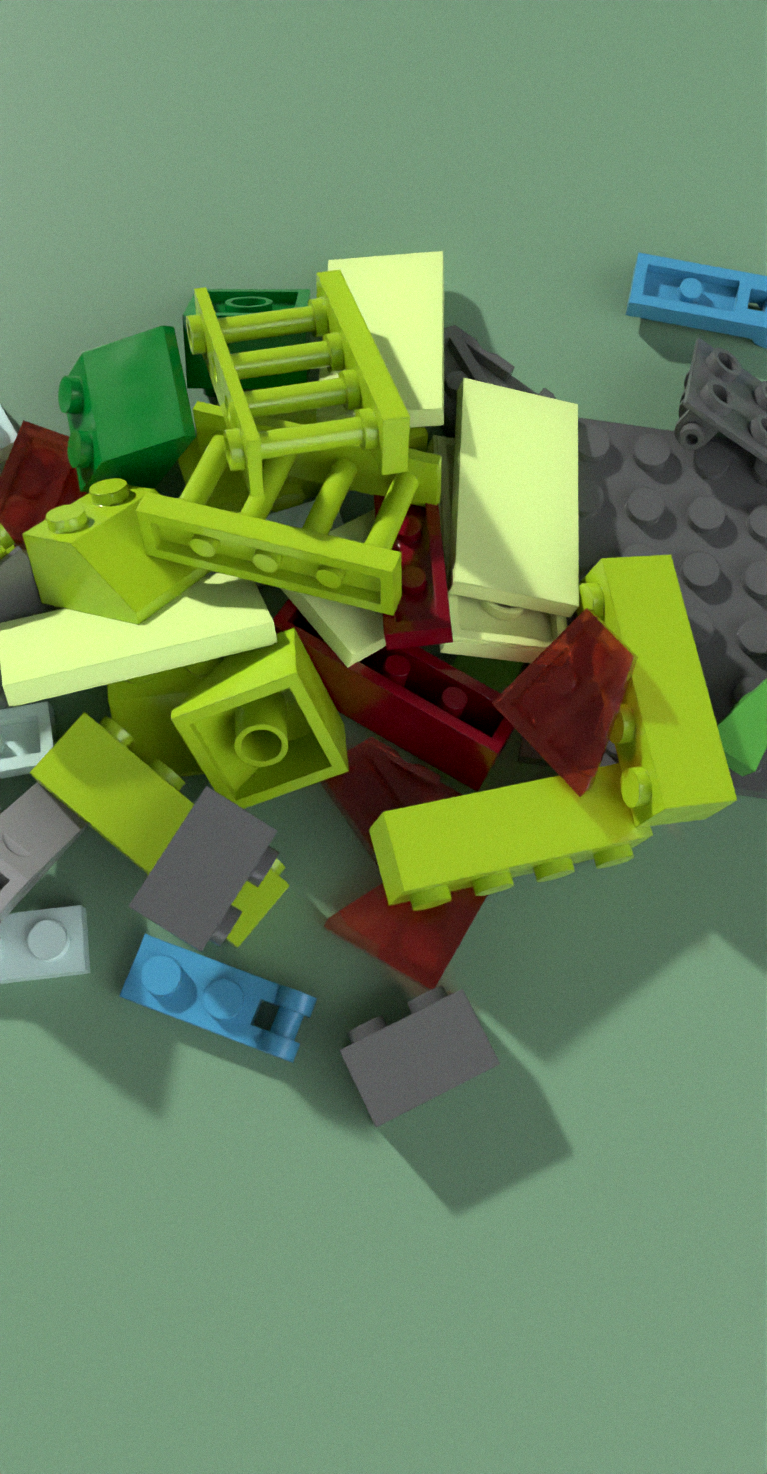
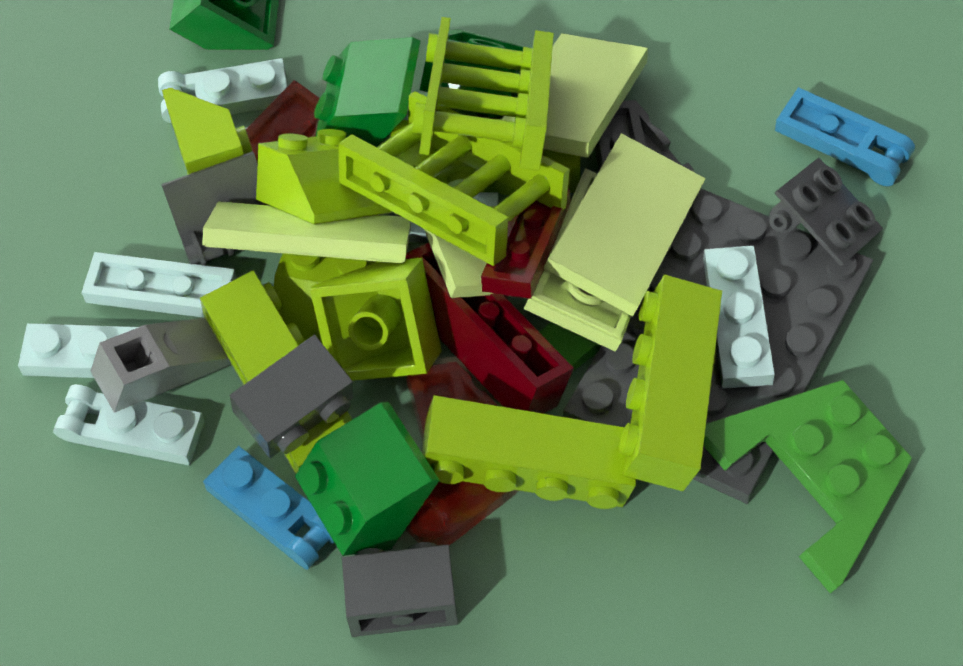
camera: 25 degrees right, 15 degrees down
(332, 939) = (367, 480): none -> green slope
(572, 698) = (603, 362): clear red wing -> none
(662, 524) = (742, 327): none -> light aqua plate

